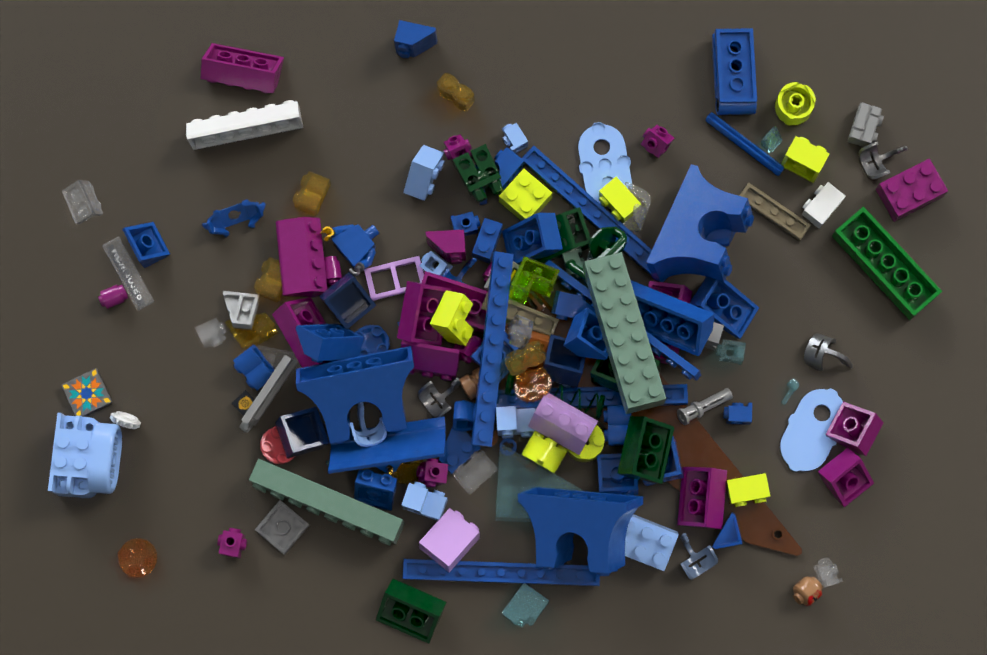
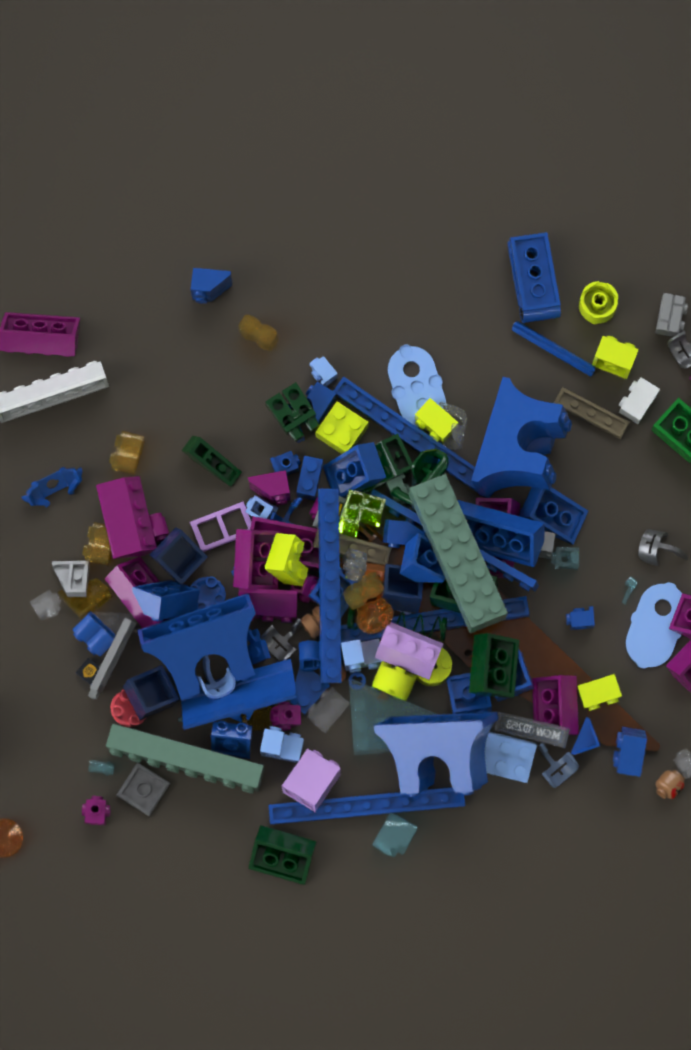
camera: 10 degrees left, 0 degrees up
(244, 500) = (101, 767): none -> clear light blue pin
(354, 244) = (177, 499): blue torso -> none
(393, 211) = (211, 460): none -> dark green slope
(414, 402) = (258, 649): none -> blue plate
(423, 172) = (237, 416): light blue brick -> none
(456, 147) = (266, 388): magenta brick -> none
(617, 425) = (462, 645): blue brick -> none
(657, 140) = (465, 356): magenta brick -> none
(676, 518) = (532, 729): none -> clear tile
(697, 409) = (539, 619): light grey pin -> none
(771, 140) = (580, 341): clear light blue slope -> none
(772, 553) = (631, 750): none -> blue brick

